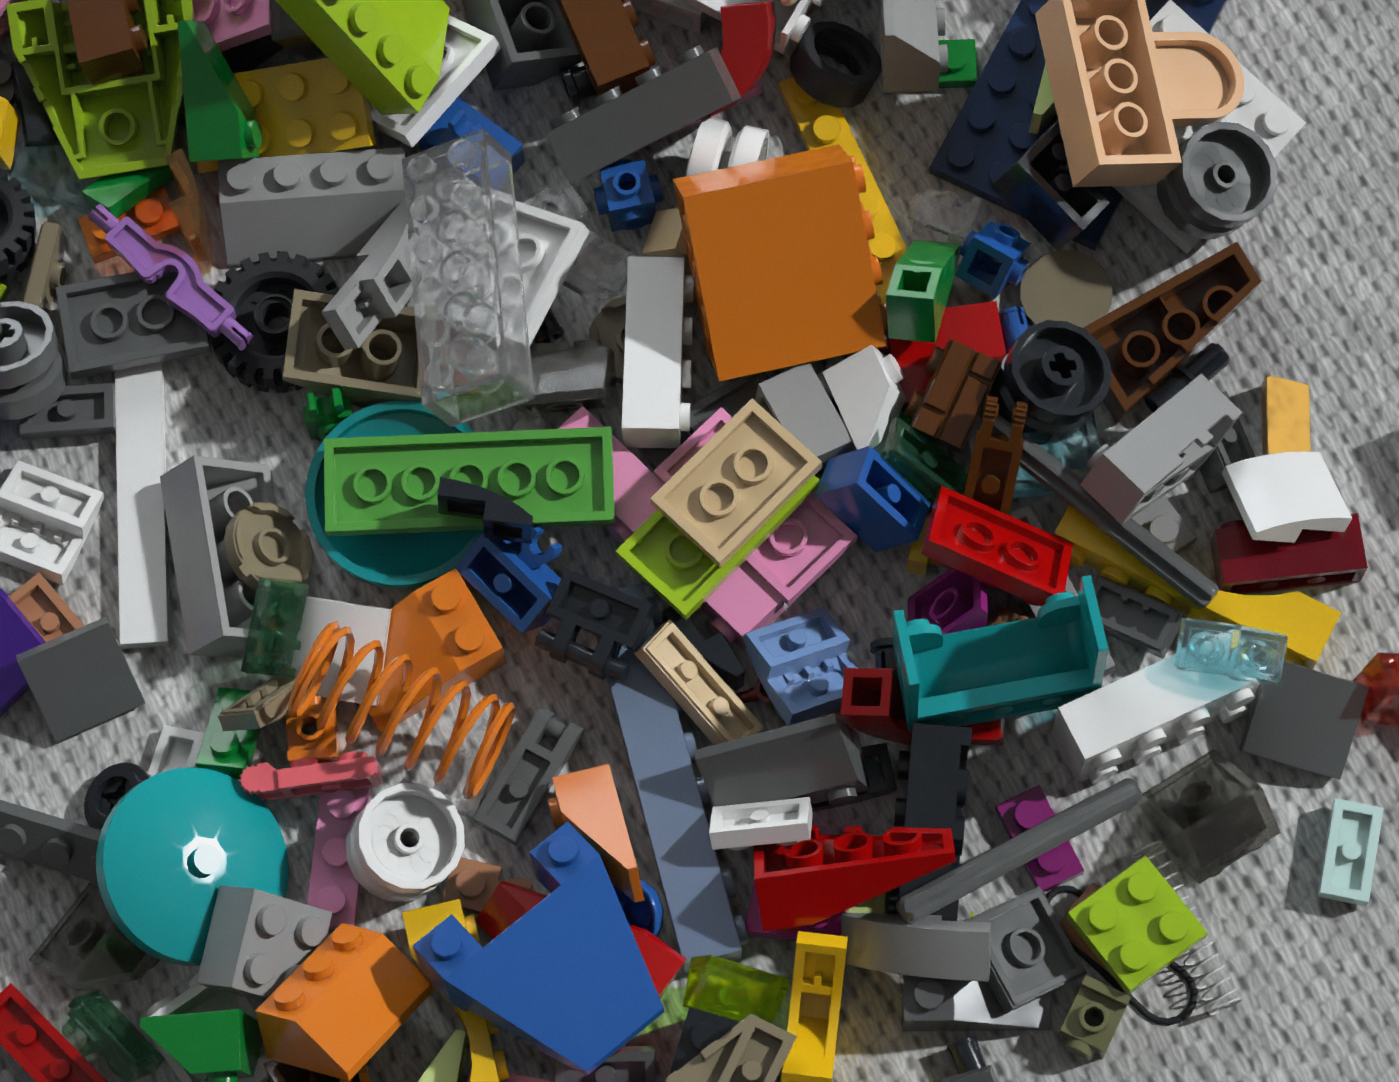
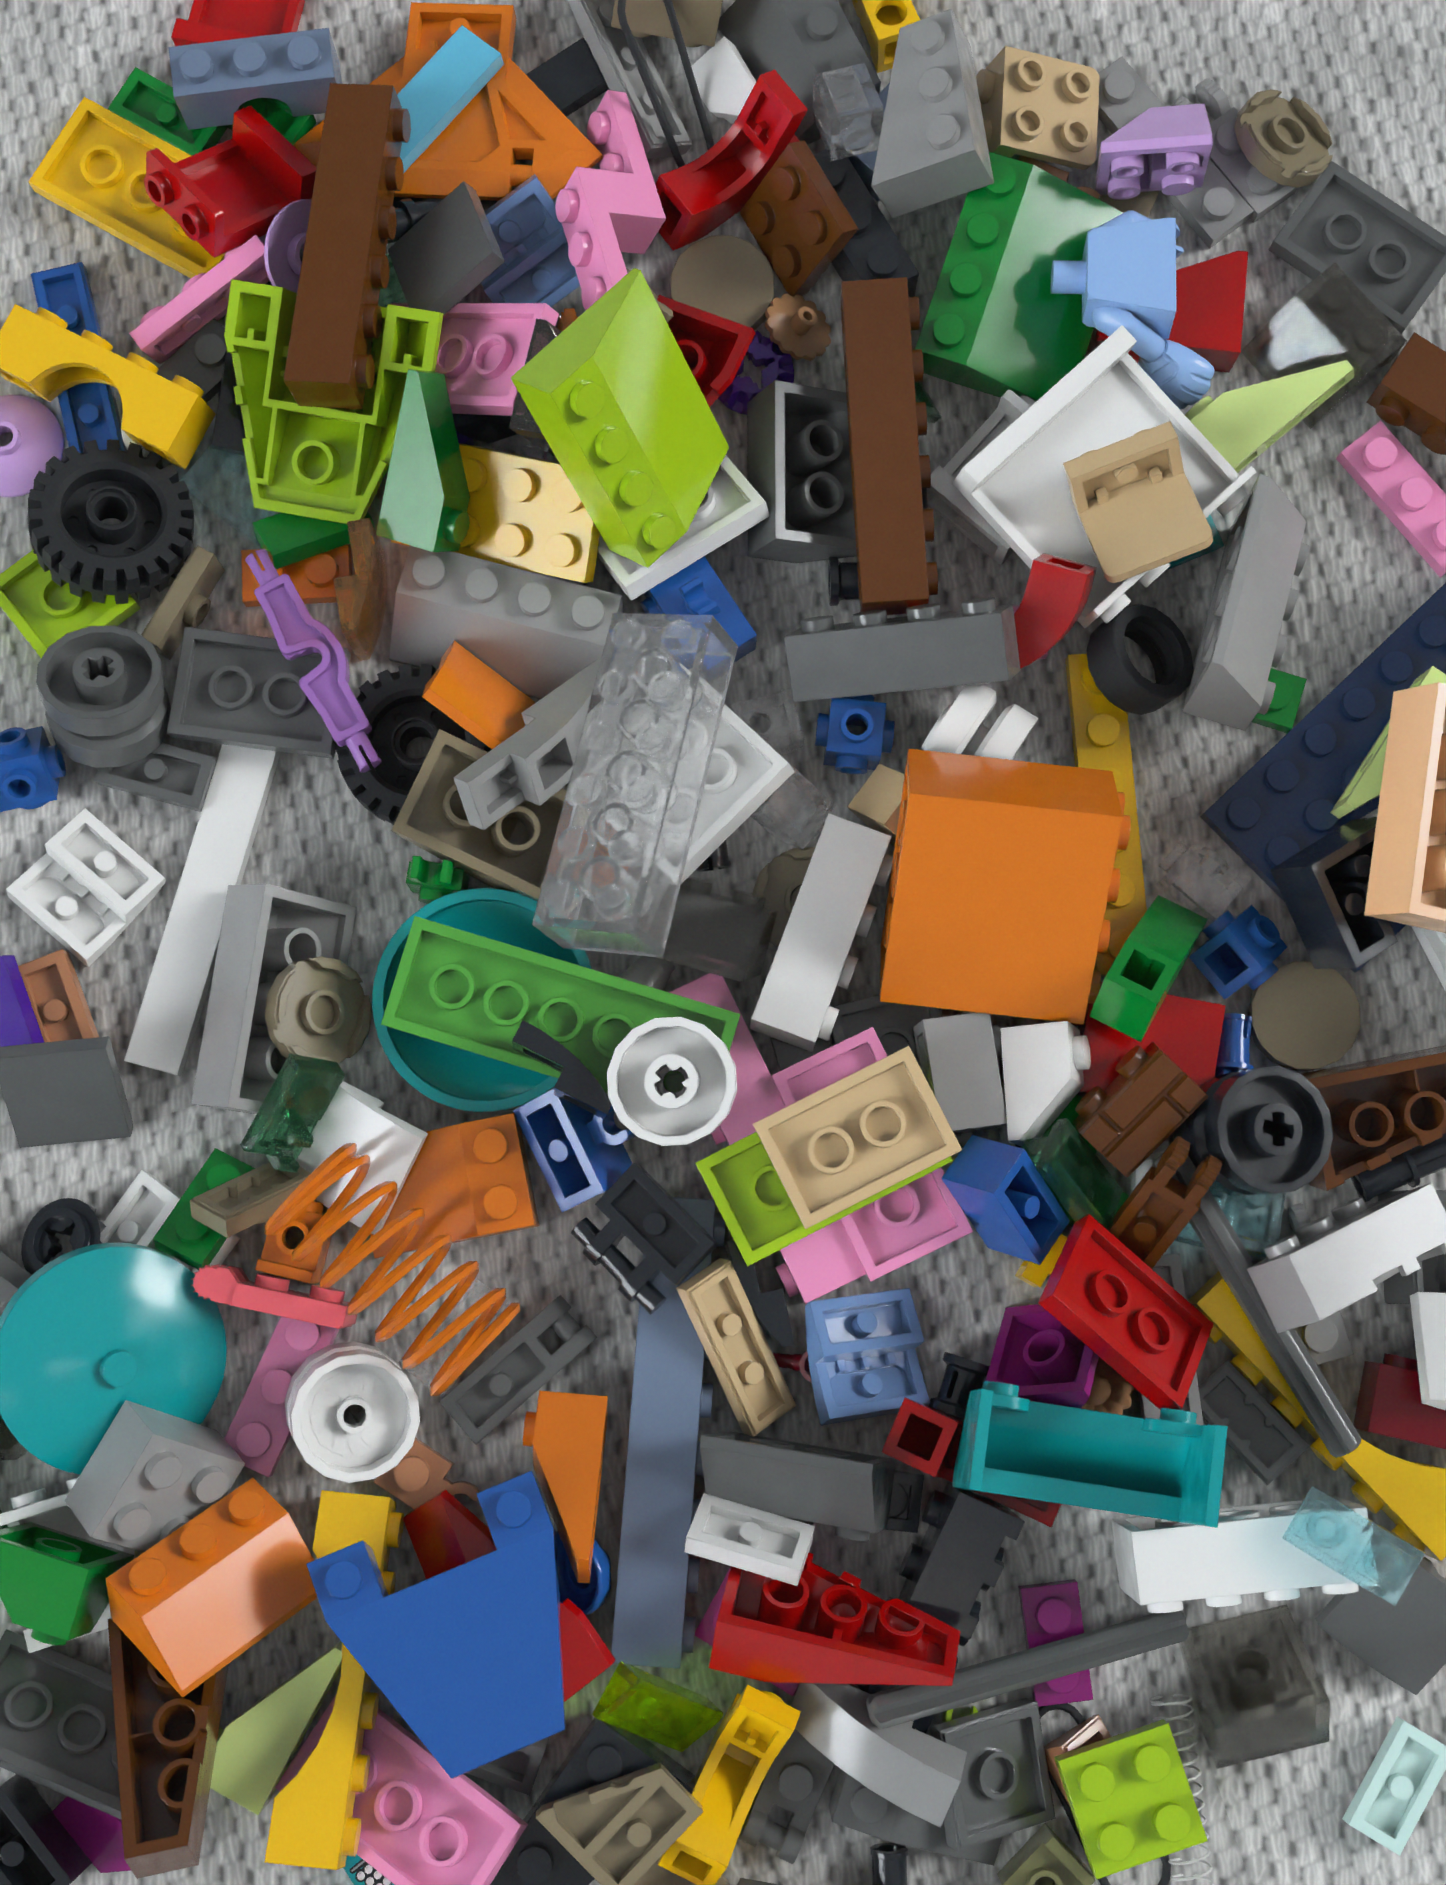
camera: 15 degrees right, 10 degrees up
(312, 260) = (476, 697): none -> orange slope
(570, 459) = (638, 1076): none -> white wheel
(866, 1020) = (794, 1784): none -> dark grey plate

